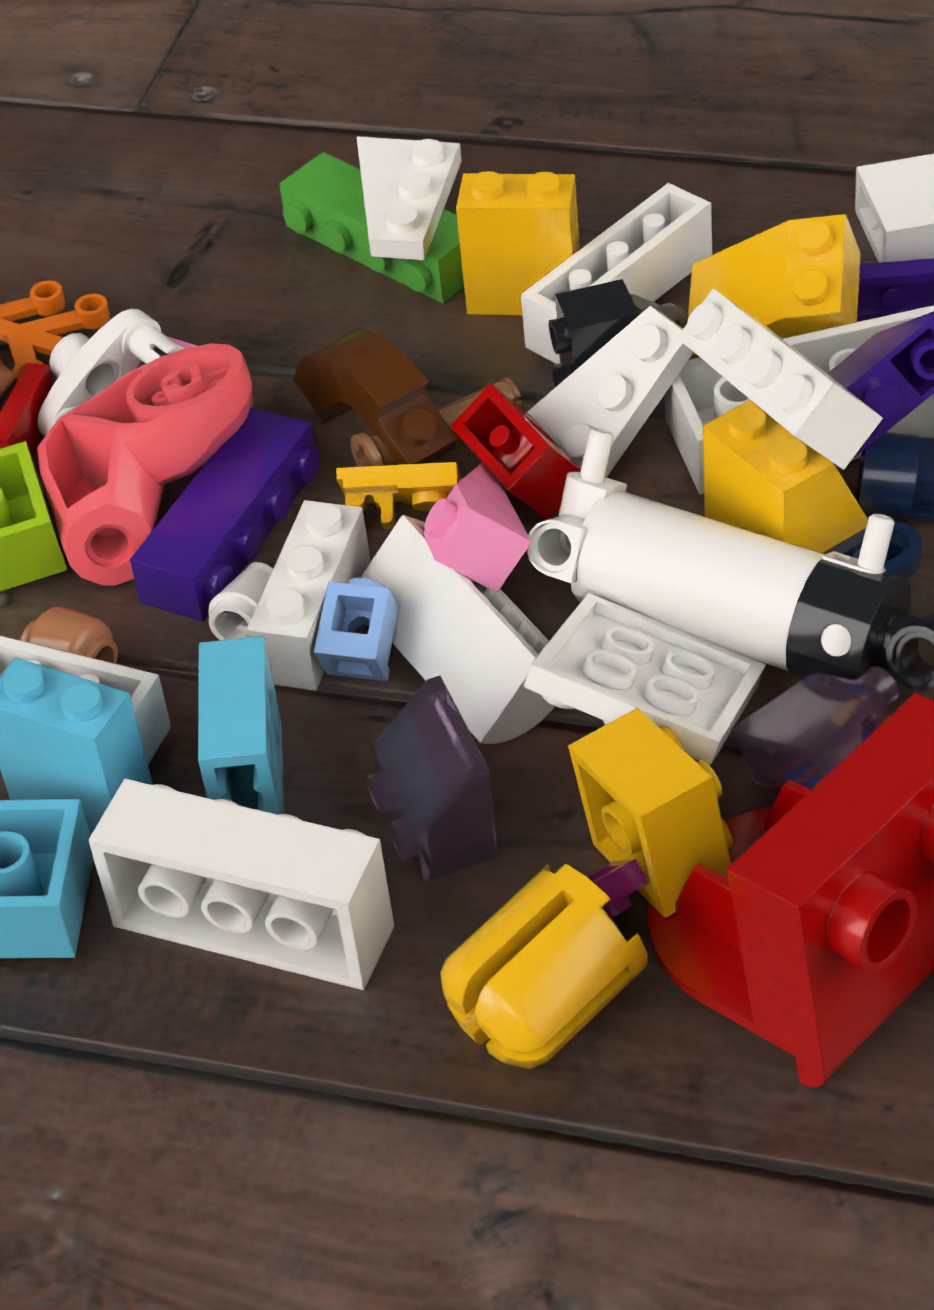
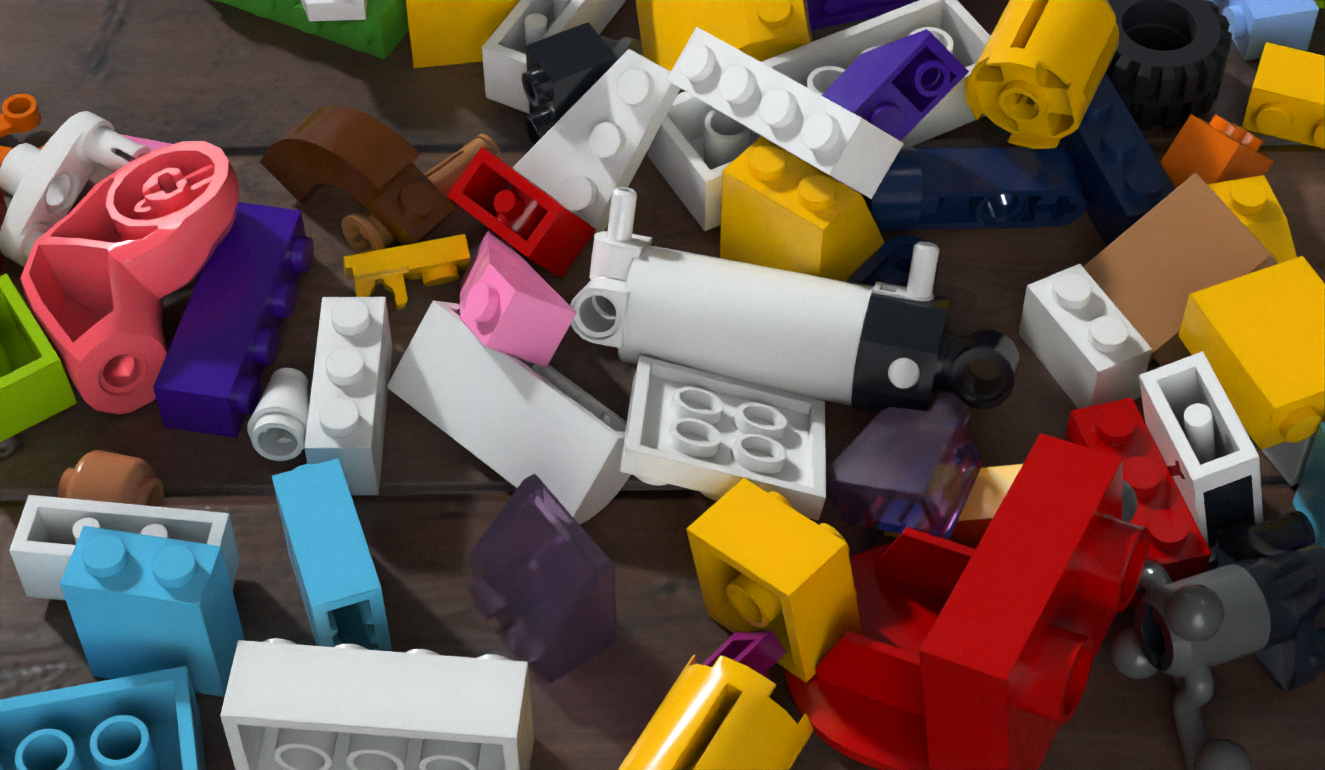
camera: 20 degrees left, 5 degrees up
(343, 612) = (398, 403): light blue brick -> none

